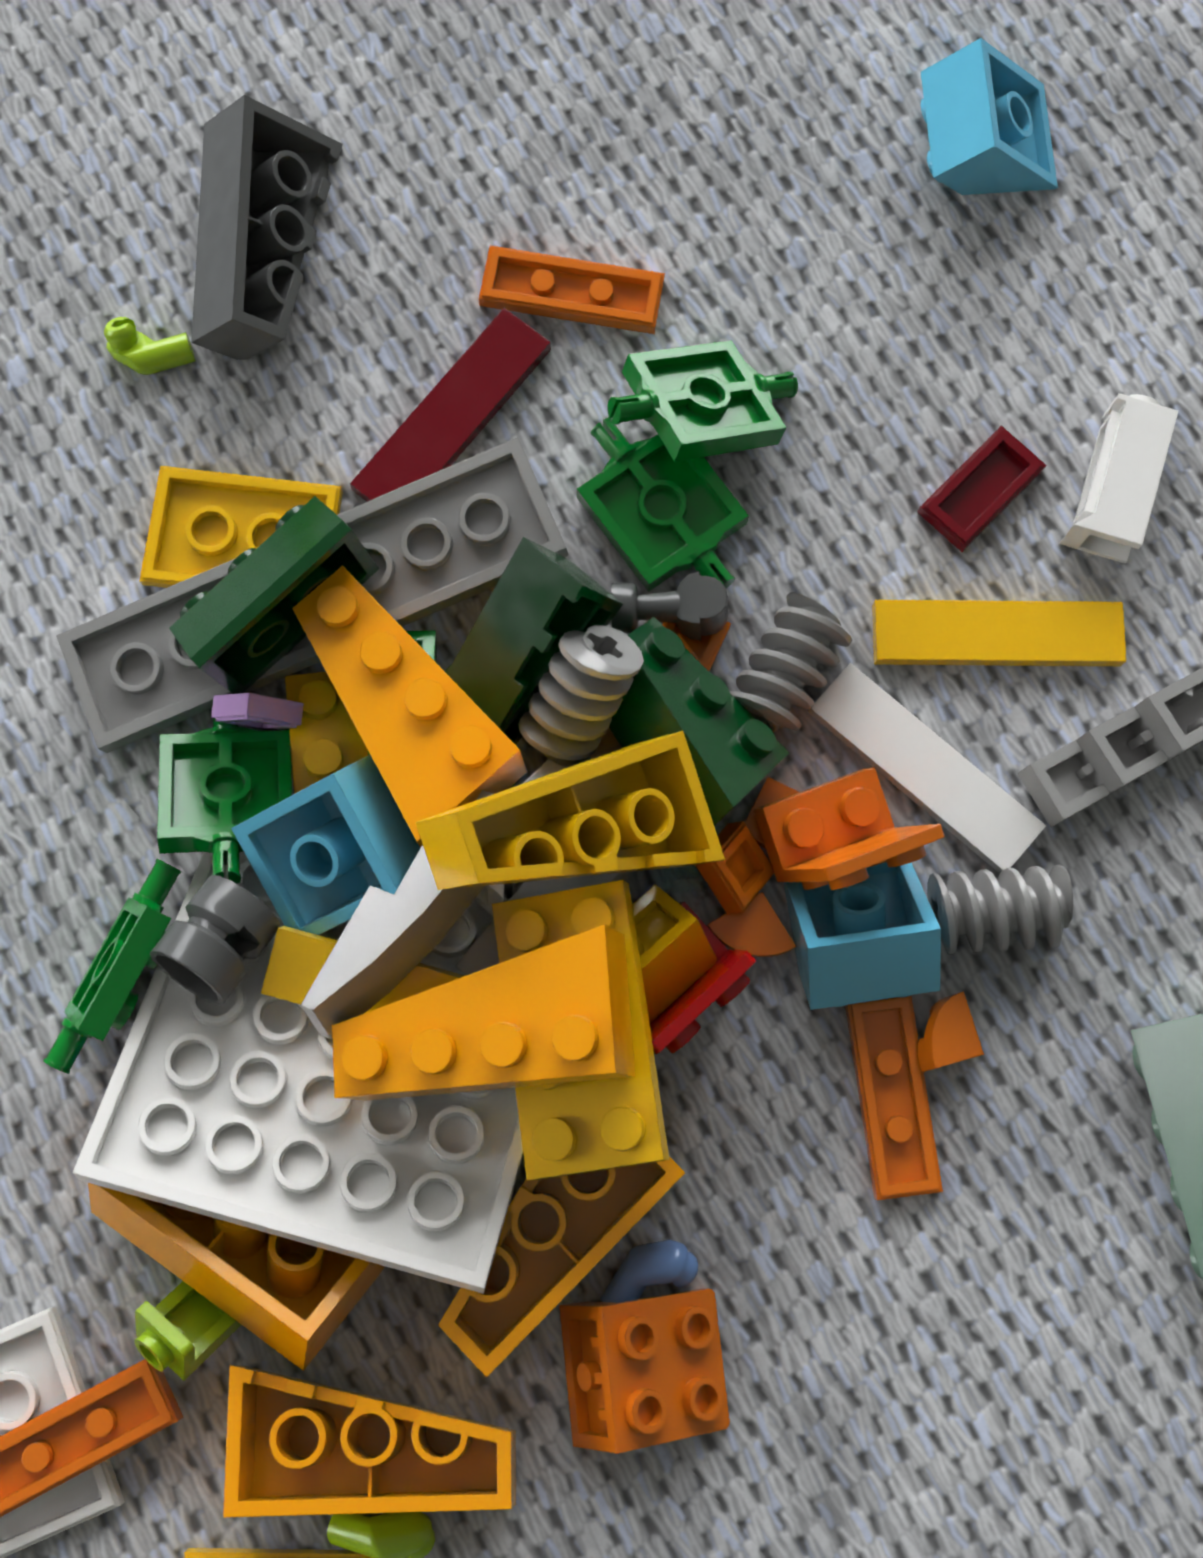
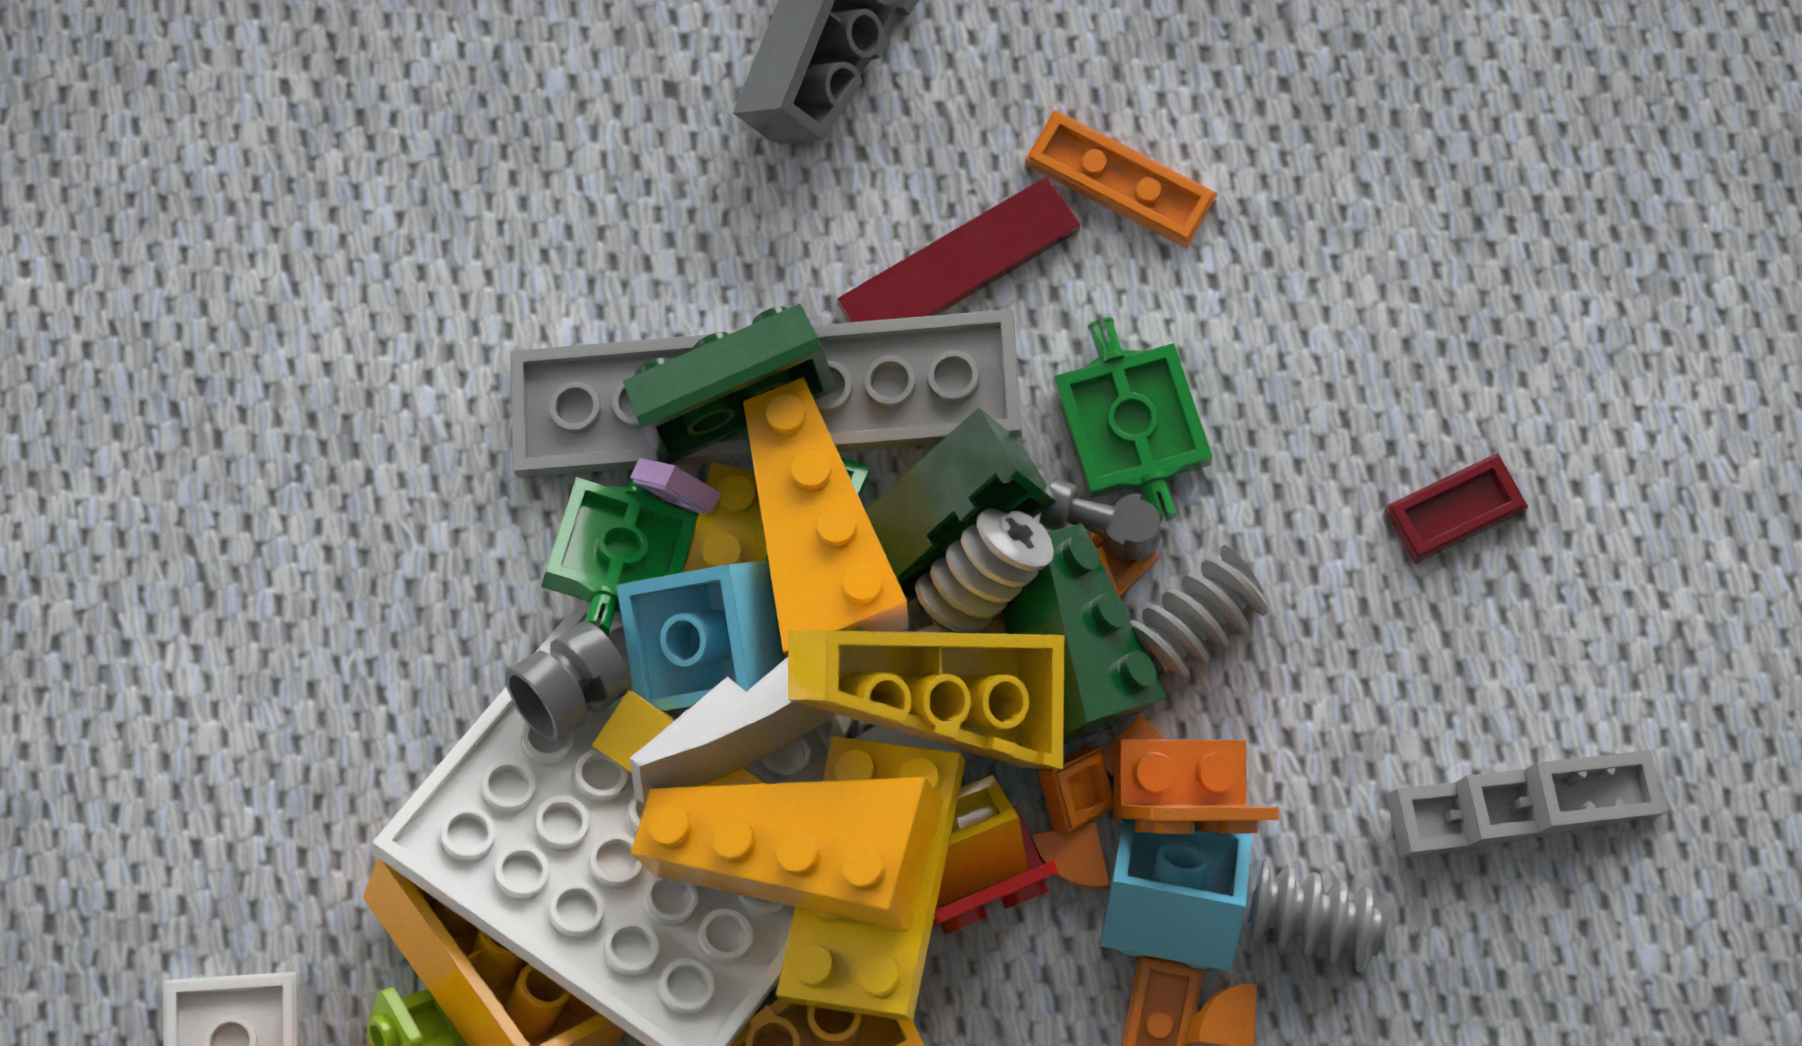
camera: 20 degrees right, 5 degrees down
(105, 991) = (449, 695): green plate -> none
(142, 352) = (682, 106): lime arm -> none
(215, 517) = (700, 290): yellow tile -> none
(703, 399) = (1207, 330): green plate -> none
(926, 769) = (1299, 760): white tile -> none
(986, 124) = (1594, 150): medium azure slope -> none
(998, 633) = (1420, 654): yellow tile -> none
(1122, 477) = (1596, 543): white window -> none

